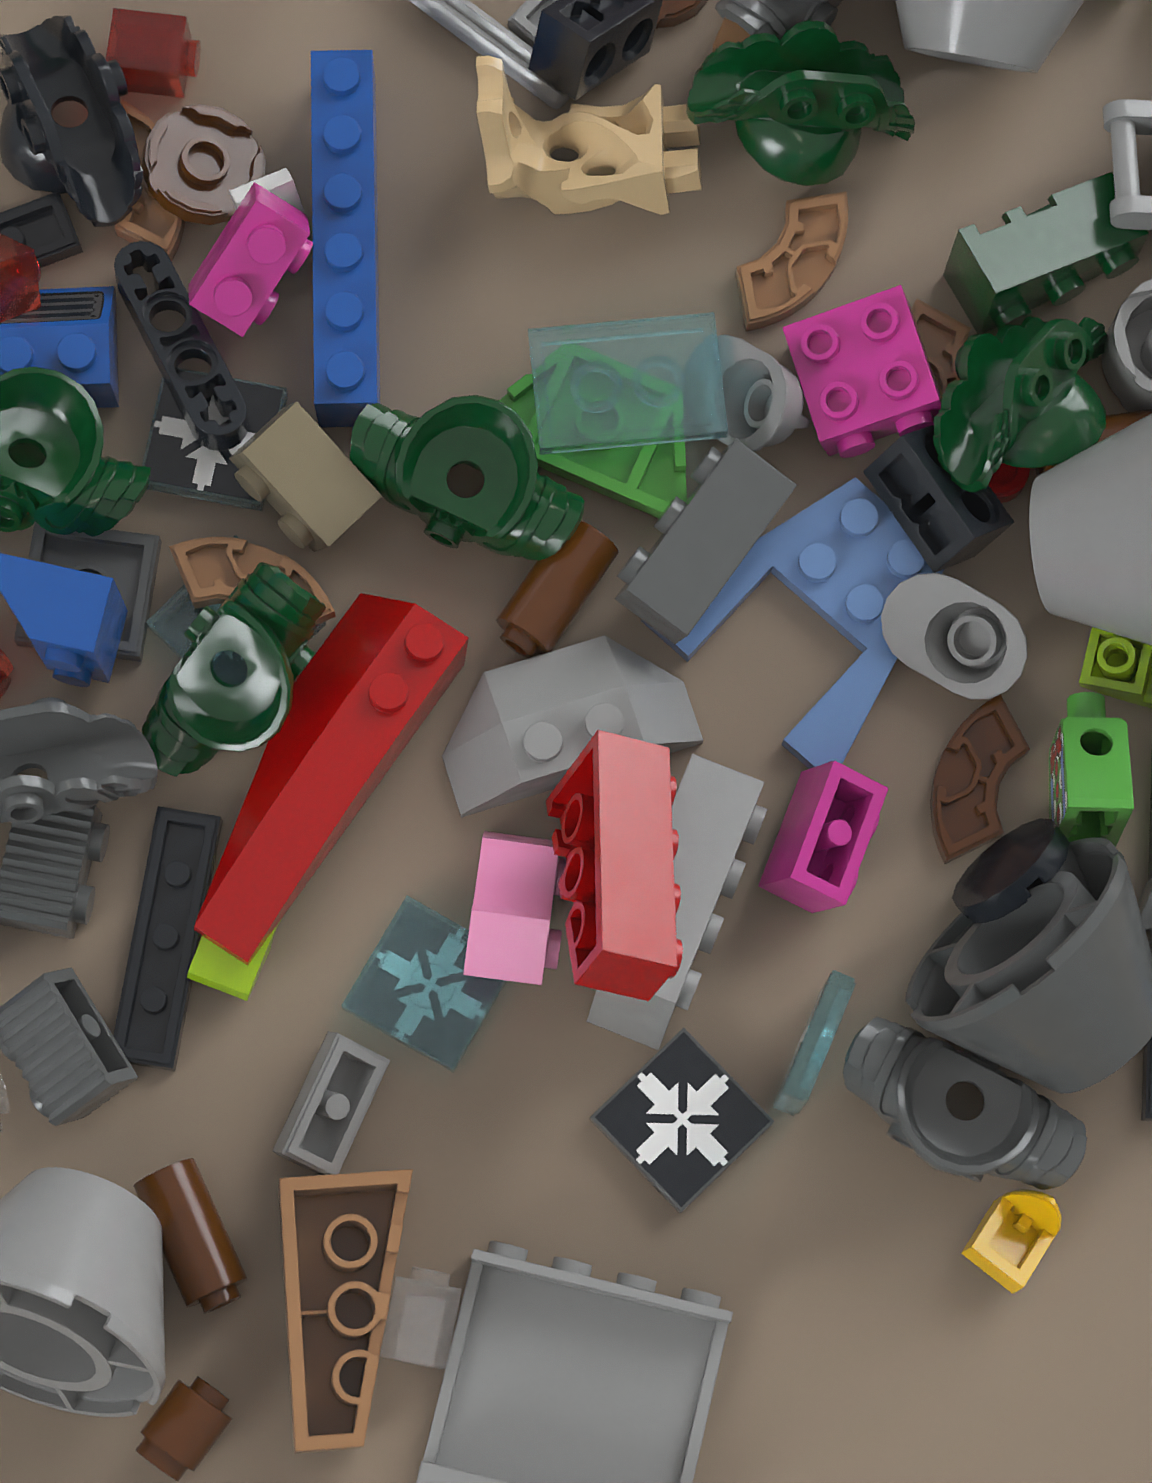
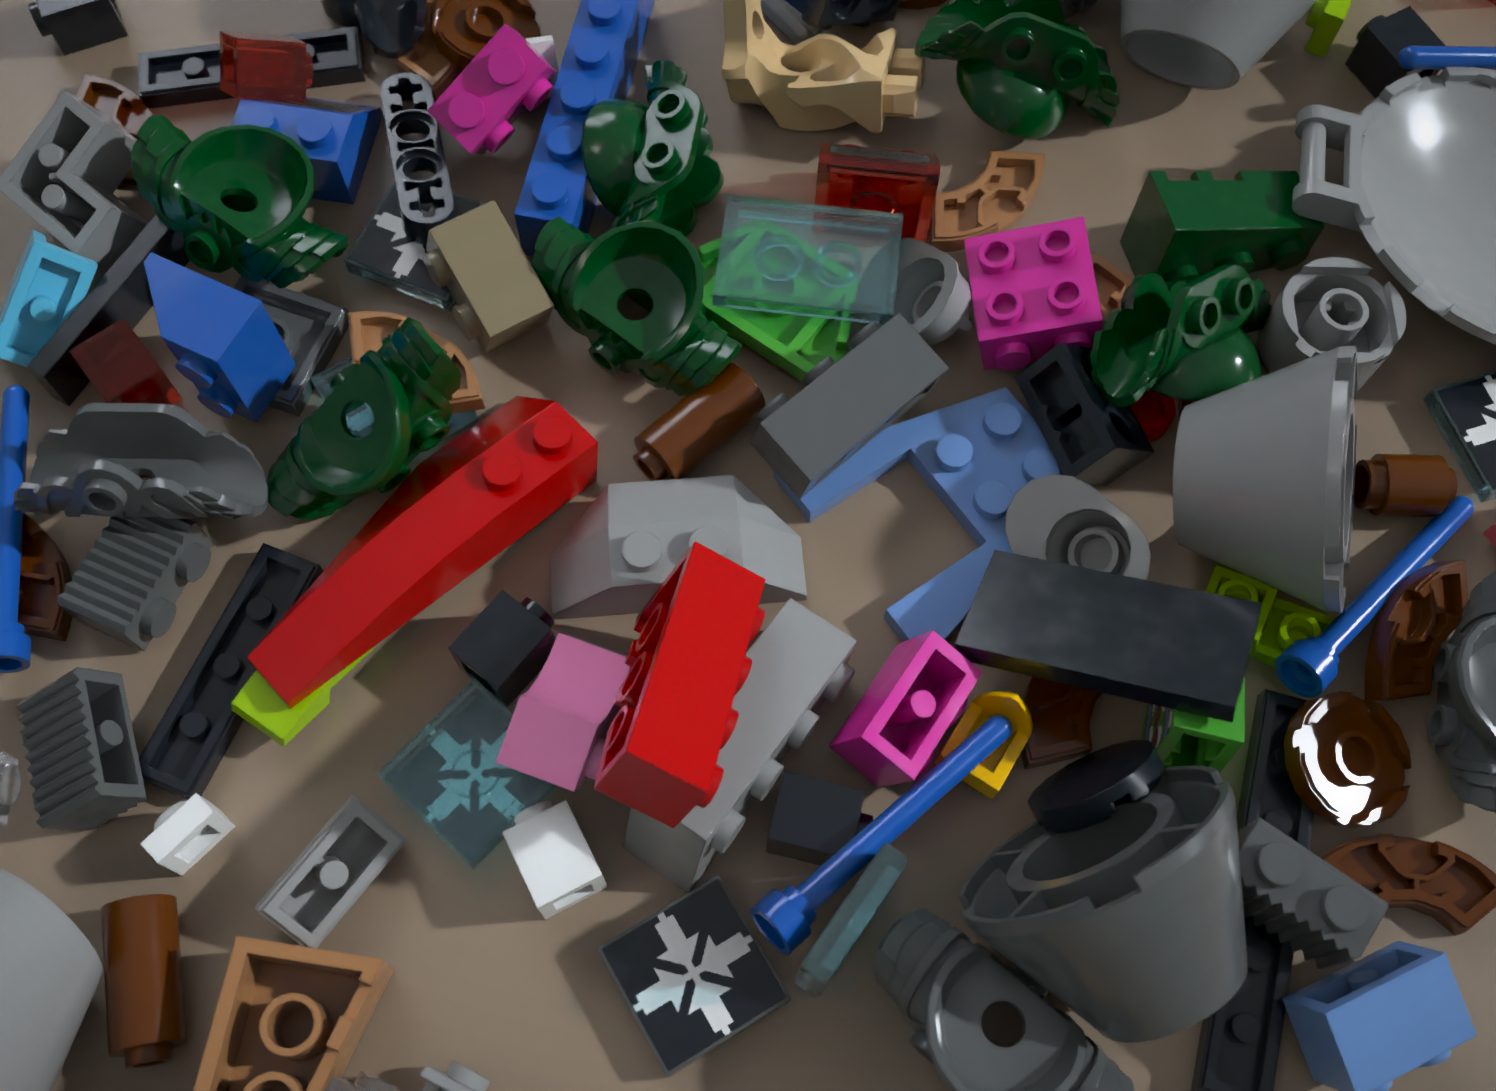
camera: 15 degrees right, 10 degrees down
(184, 1099) = (186, 833): none -> white plate
(429, 857) = (505, 646): none -> black brick
(435, 301) = (655, 157): none -> dark green piece
(530, 1045) = (553, 857): none -> white brick
(679, 276) = (880, 182): none -> clear red slope
(760, 1050) = (787, 914): none -> blue piece
(764, 959) = (814, 819): none -> black brick
(904, 848) = (993, 771): none -> yellow plate
(997, 726) = (1111, 634): none -> black tile

